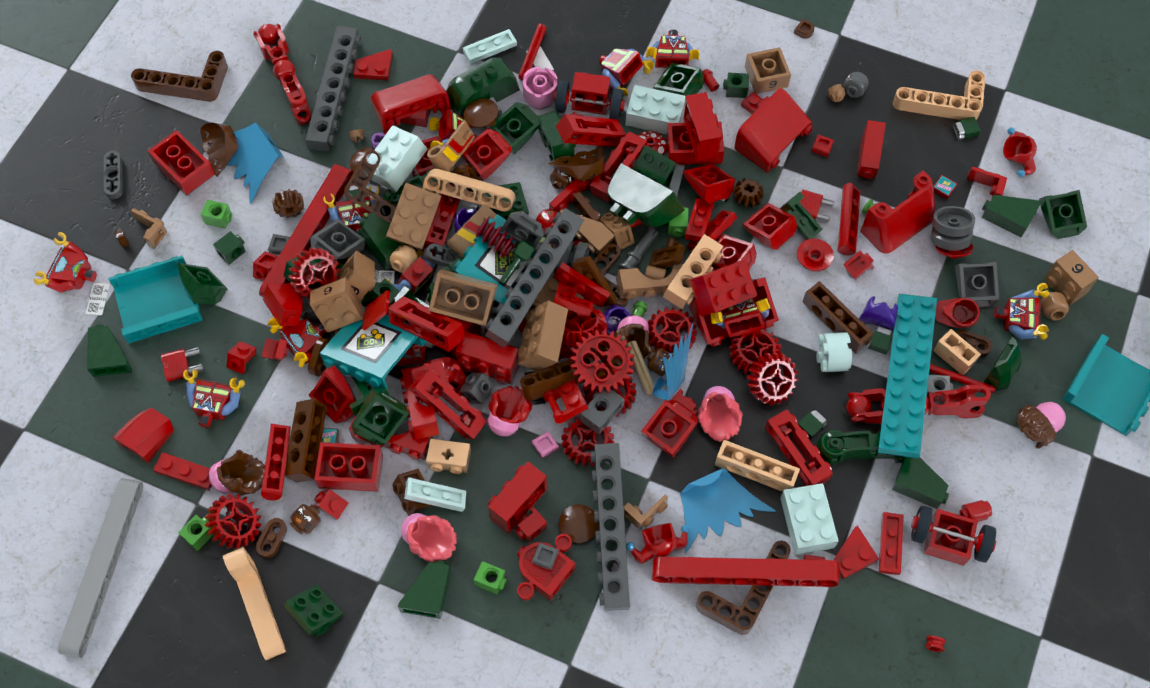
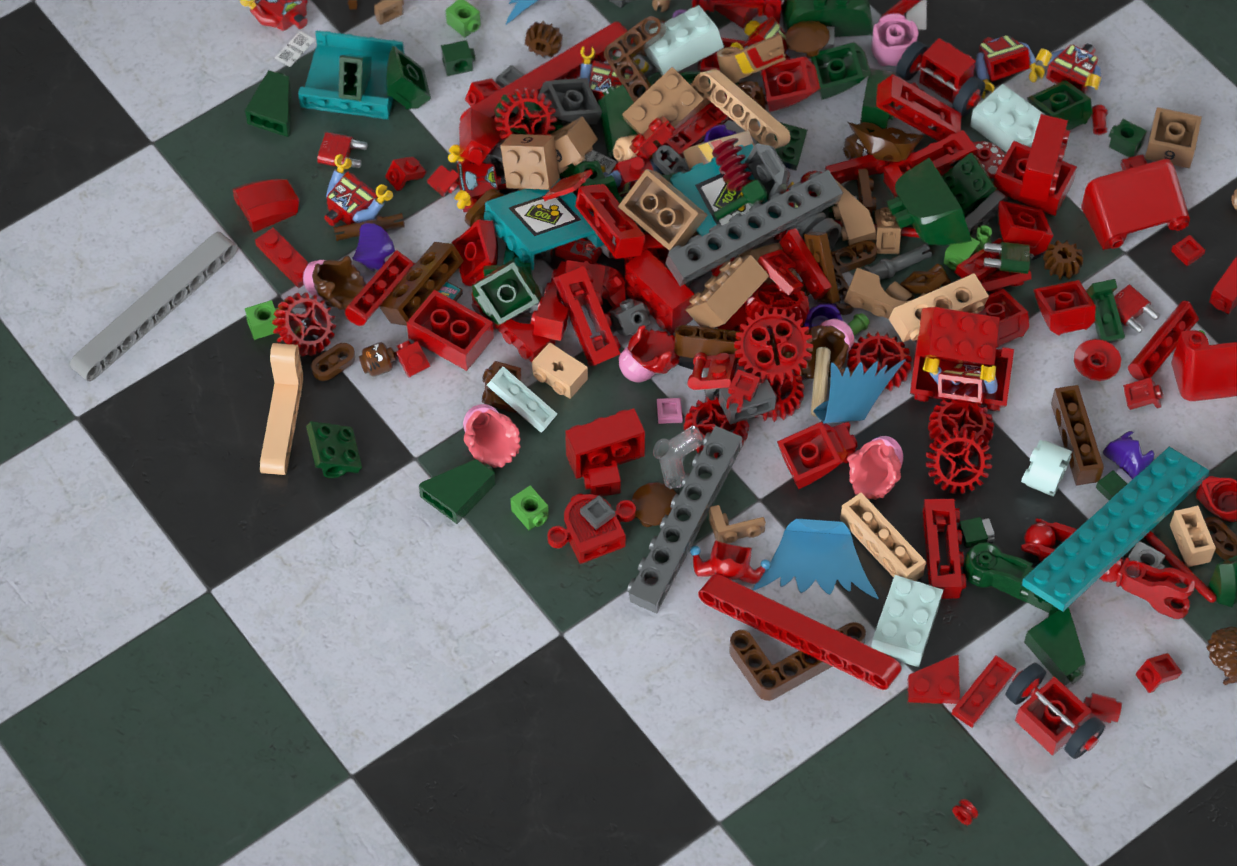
camera: 30 degrees right, 5 degrees down
(160, 301) = (354, 76): none -> dark green slope
(237, 414) = (353, 230): none -> reddish brown pin
(251, 429) = (373, 246): none -> dark purple hair
(421, 235) = (657, 131): none -> red hinge
(574, 486) = (673, 452): none -> clear piece
(599, 405) = (742, 388): none -> red plate
(687, 202) = (983, 235): none -> bright green pin
(718, 209) = (1012, 257): none -> dark green piece
(994, 464) = (1158, 671): none -> red bracket

